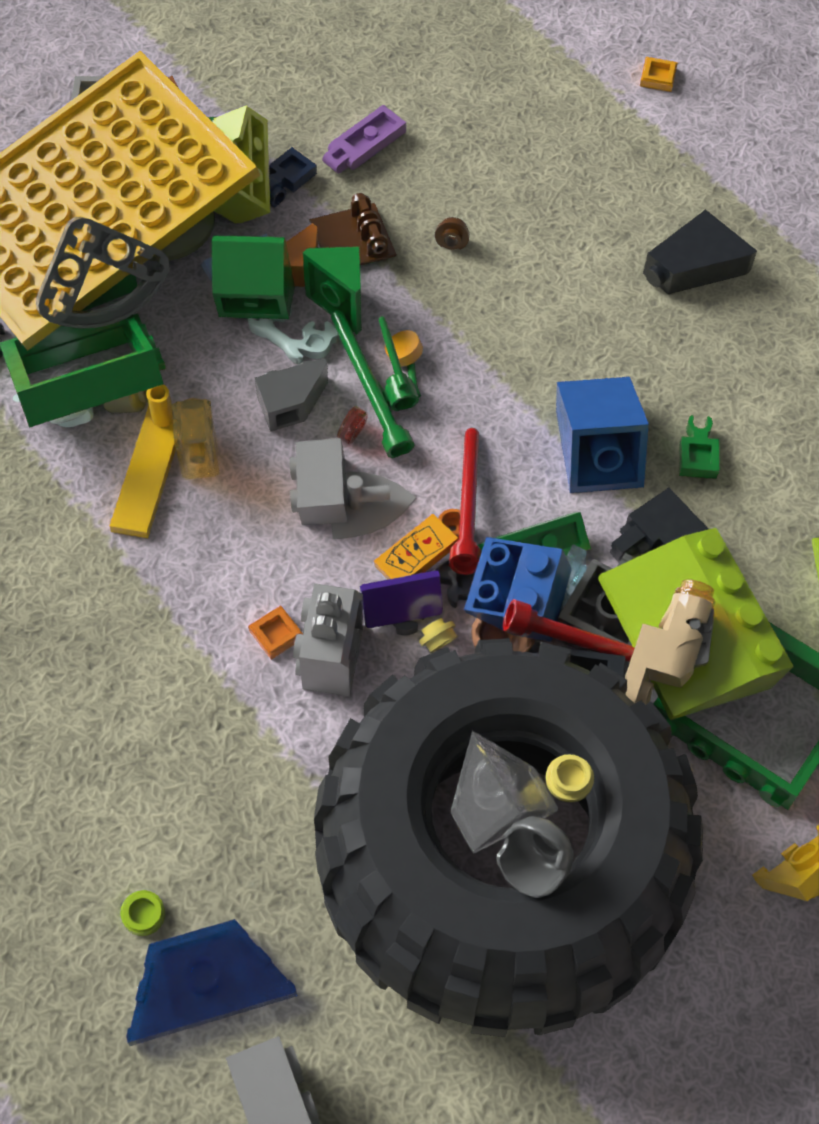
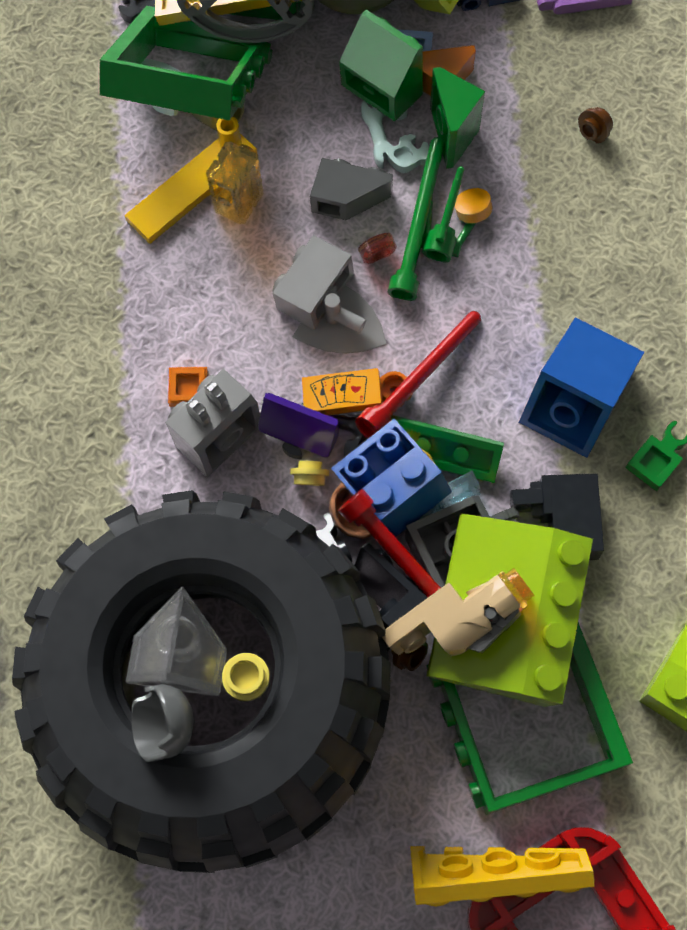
camera: 40 degrees right, 10 degrees up
(356, 228) = (511, 75): reddish brown hinge -> none

